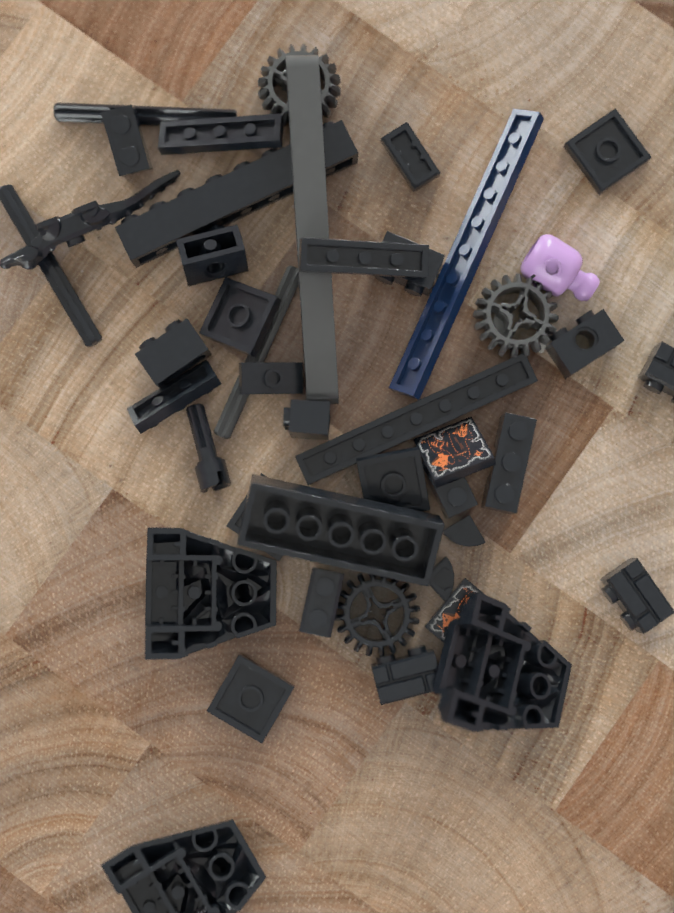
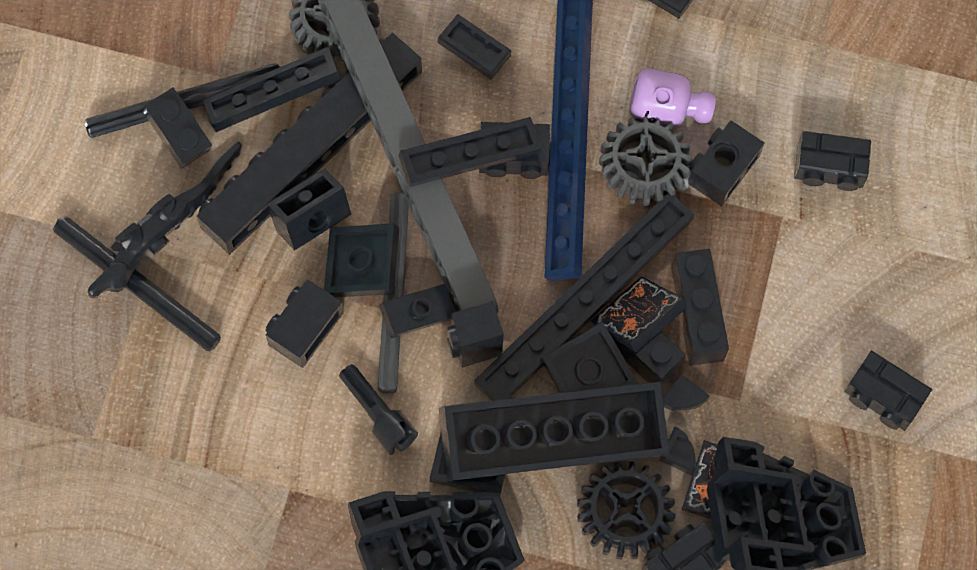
camera: 25 degrees left, 15 degrees down
(173, 396) = (321, 367): black plate -> none
(321, 602) = (563, 519): black brick -> none

